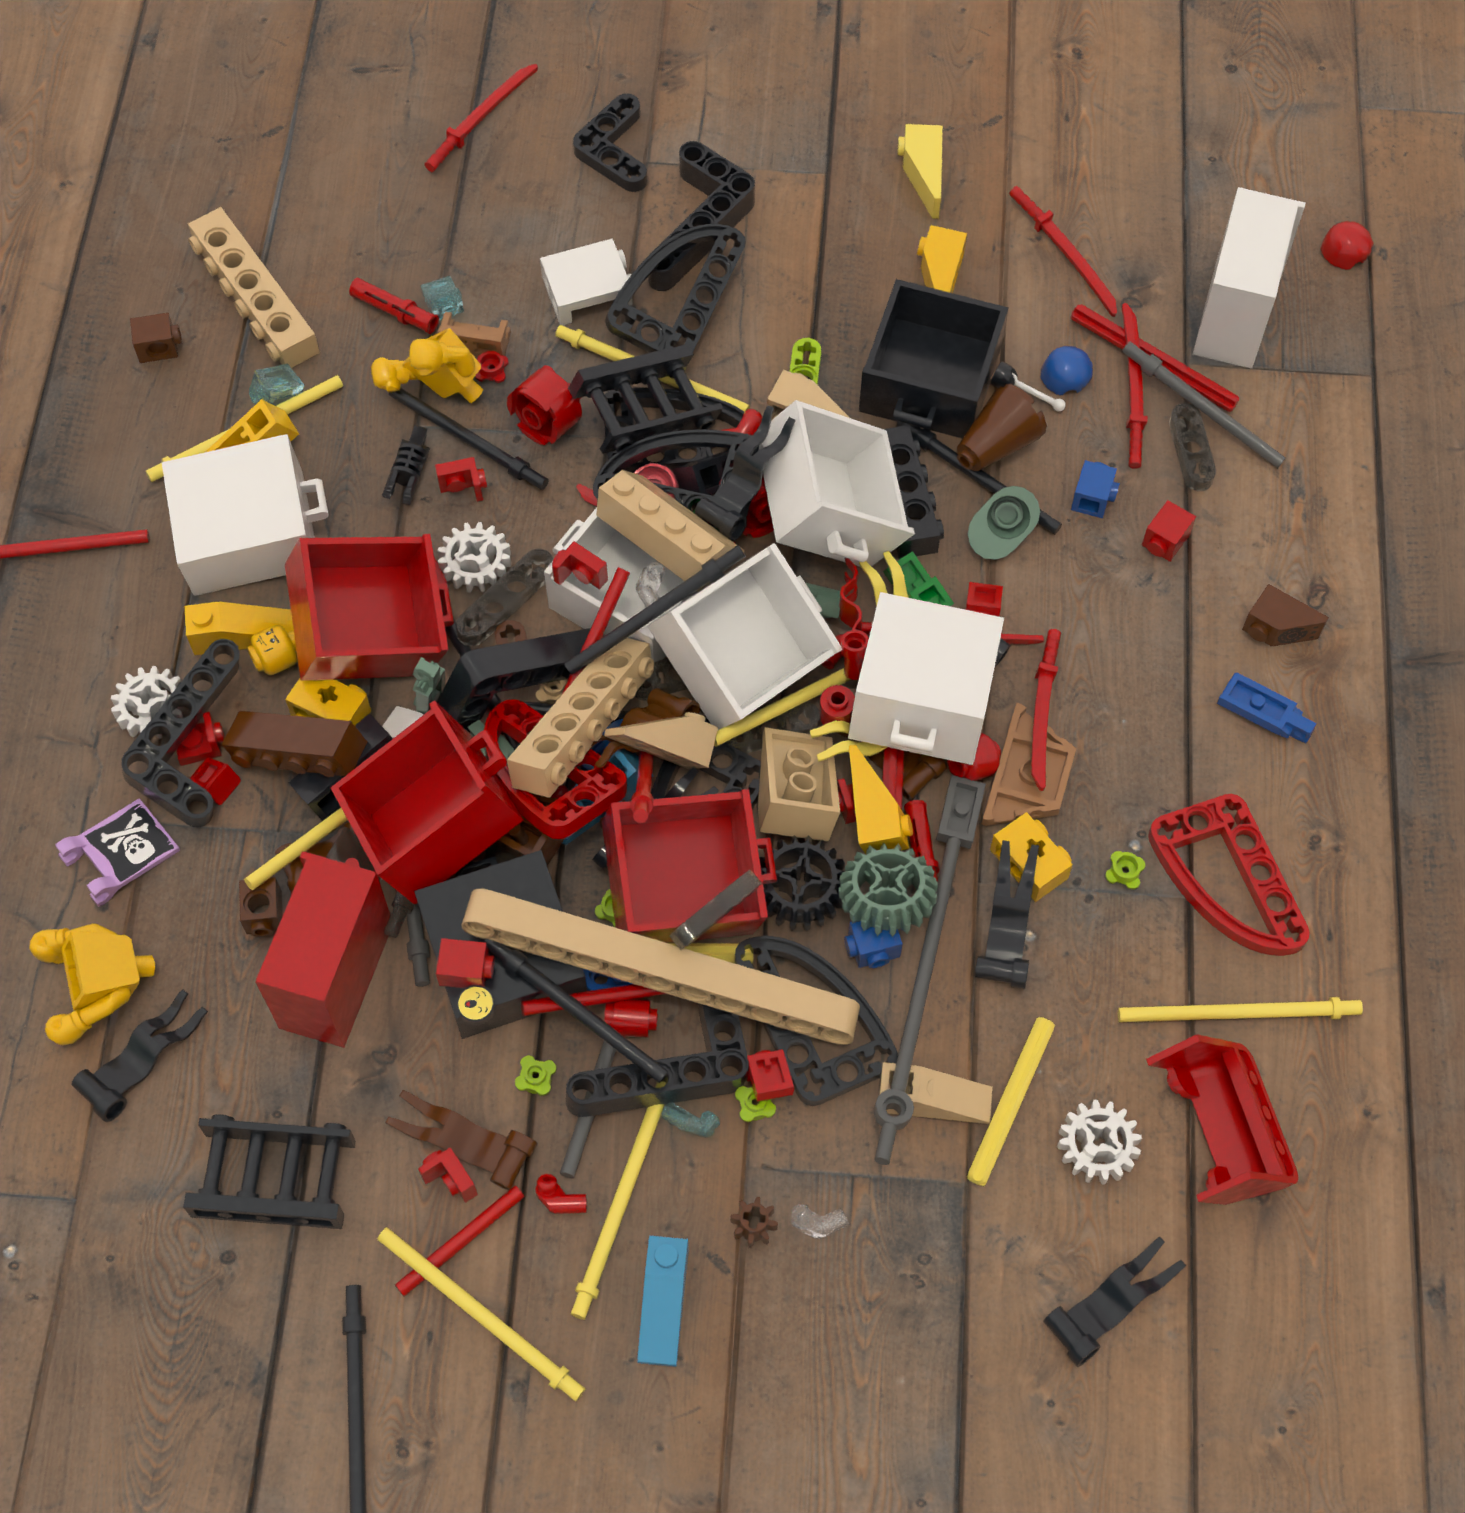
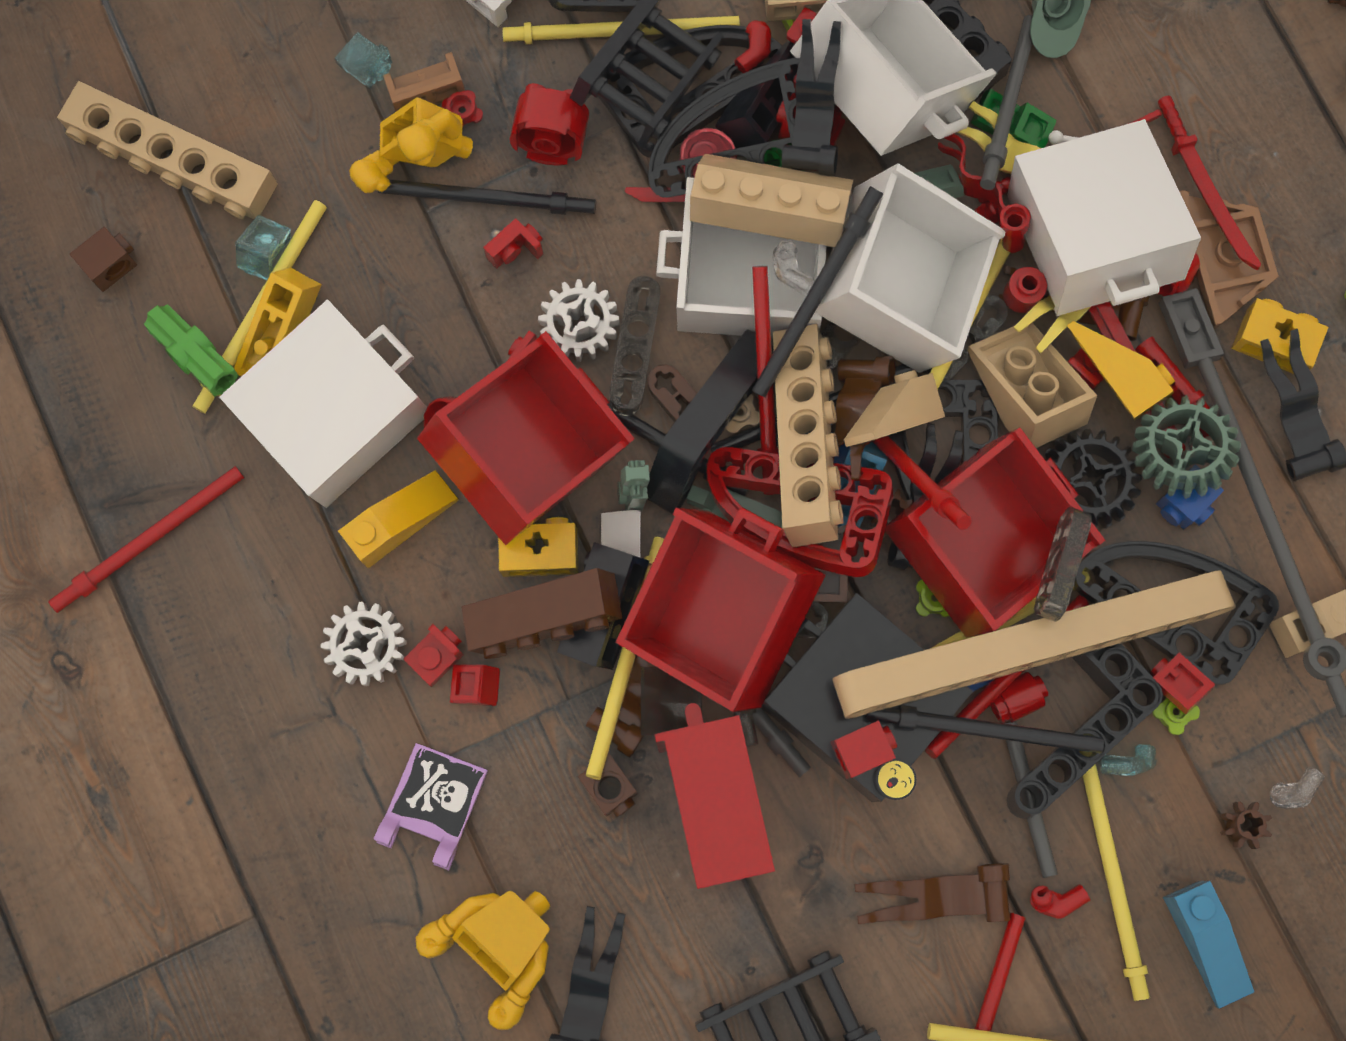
camera: 25 degrees left, 15 degrees up
(169, 424) = (190, 349): none -> bright green piece
(177, 730) = (417, 663): black beam -> none
(273, 650) = (449, 524): yellow head -> none
(408, 465) = (450, 258): black hinge -> none
(422, 319) = (323, 94): red pin -> none
(456, 1177) = (957, 939): red bracket -> none
(535, 1085) = (959, 810): lime plate -> none
(583, 564) = (717, 281): red bracket -> none
(871, 591) = (996, 152): none -> dark grey bar
(984, 598) = (1087, 107): red bracket -> none

